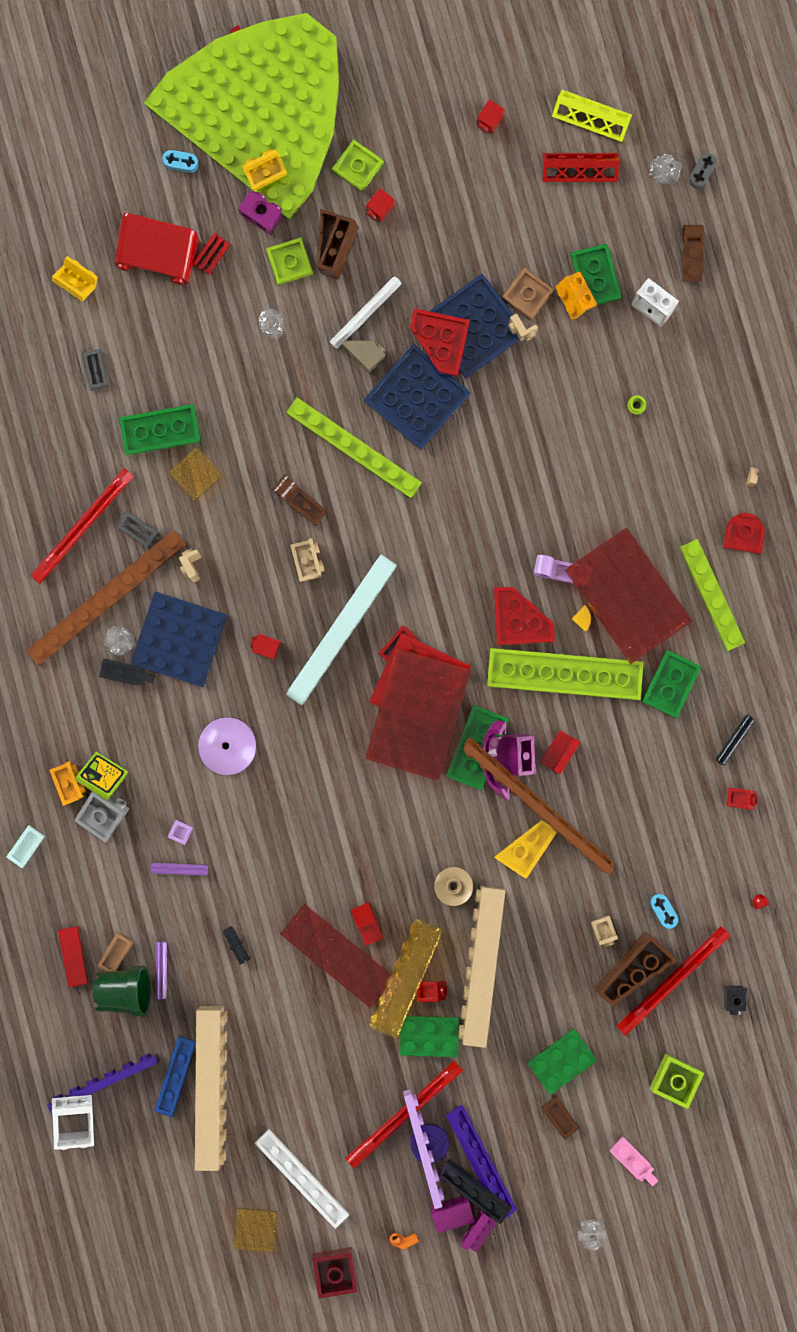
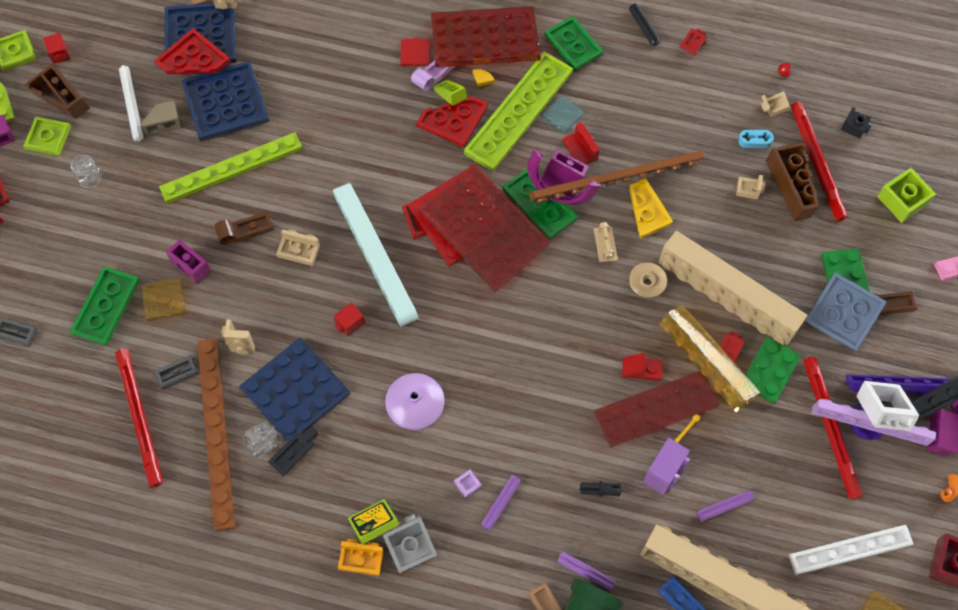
camera: 65 degrees left, 20 degrees down
(237, 474) = (188, 261): none -> magenta brick
(281, 1056) = (725, 505): none -> medium lavender axle
(282, 992) = (664, 469): none -> medium lavender brick
(346, 993) = (696, 418): none -> yellow hinge
(423, 1162) = (903, 413): none -> white window
(470, 828) = (605, 243): none -> tan hinge
(520, 1077) = (845, 312): none -> sand blue plate
(541, 610) = (451, 91): none -> lime slope
(575, 538) = (415, 52): none -> red piece
(587, 716) = (563, 114): none -> clear light blue piece
(712, 911) = (775, 104): none -> tan bracket

